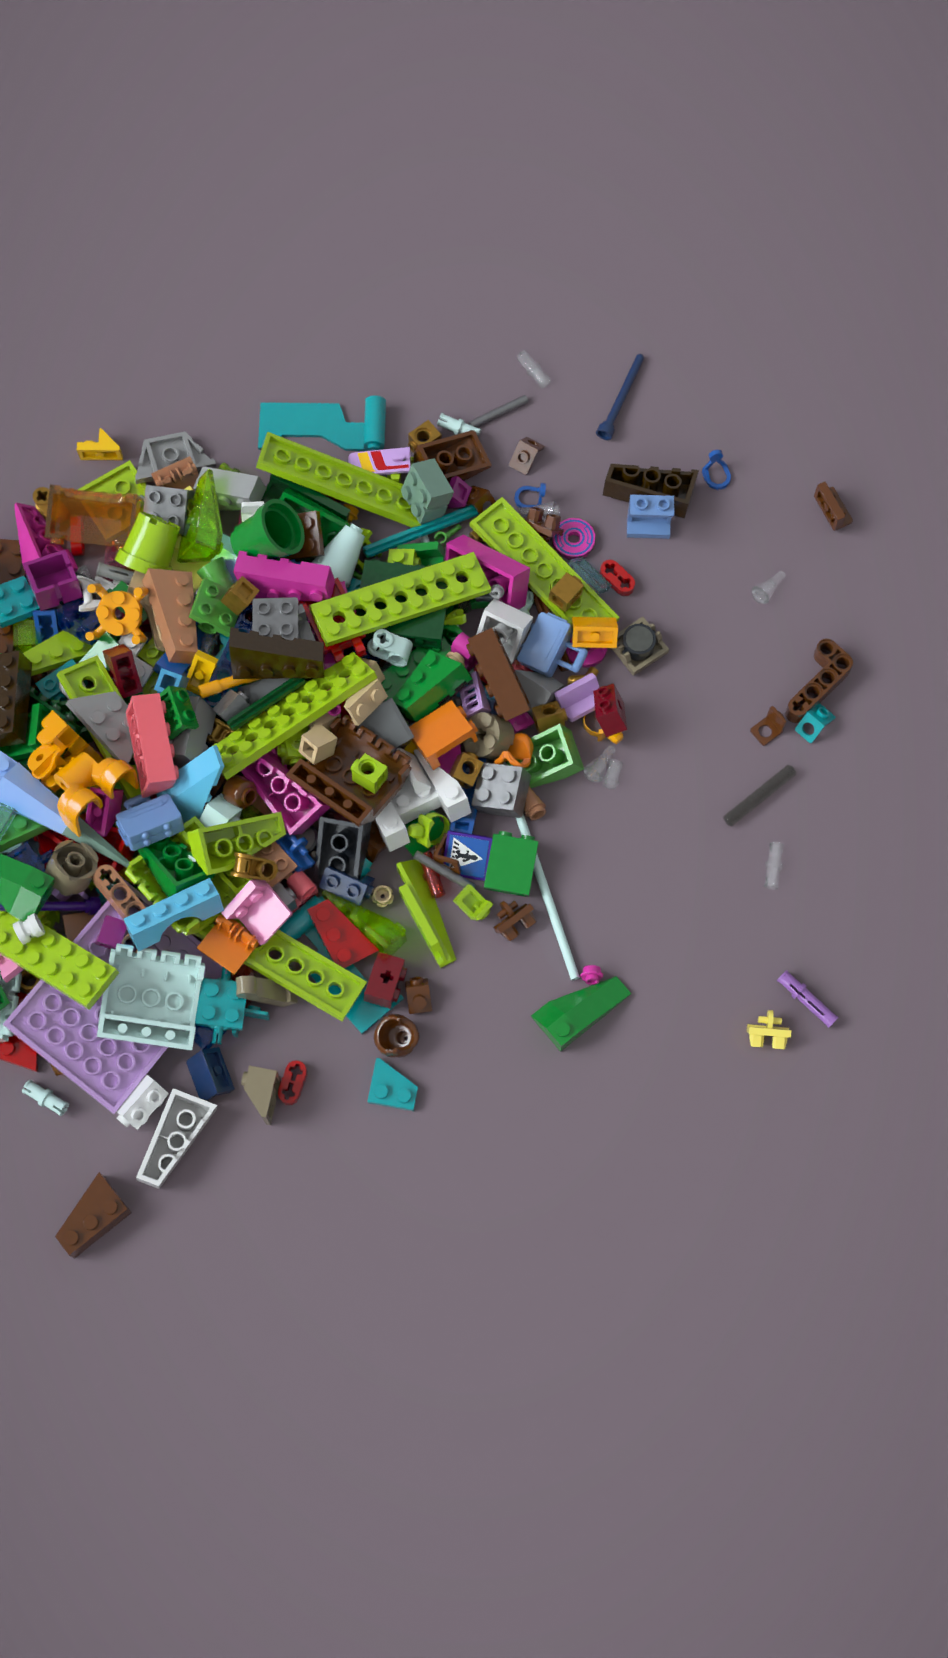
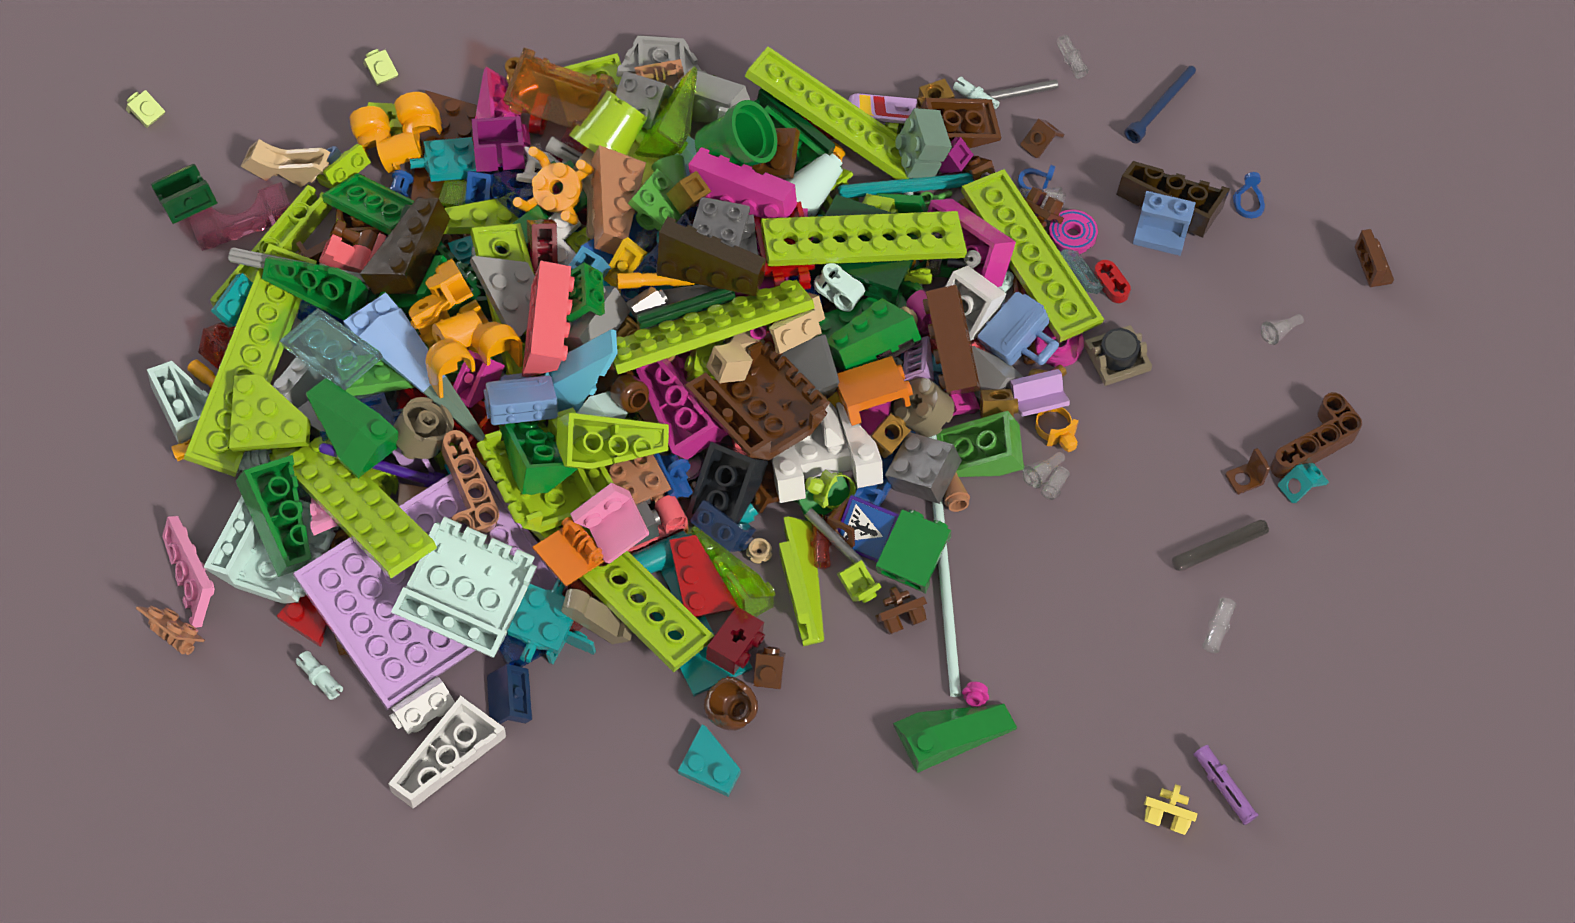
camera: 15 degrees right, 10 degrees down
(30, 928) = (354, 478): white wheel -> none
(92, 1217) = (326, 819): reddish brown wedge -> none
(104, 449) = (593, 38): yellow slope -> none
(111, 932) = (443, 504): magenta panel -> none
(196, 901) = (487, 501): medium azure arch -> none
(250, 867) = (616, 469): pearl gold piece -> none
(262, 1090) = (562, 724): dark tan slope -> none
(297, 1084) = (594, 724): red beam -> none
(327, 422) = (839, 62): teal door -> none
(369, 781) = (778, 406): lime brick -> none
(521, 749) = (955, 432): orange piece -> none
(566, 592) = (1050, 277): pearl gold brick -> none
(594, 632) = (1071, 326): light orange panel -> none
(610, 710) = (1068, 408): dark red brick -> none

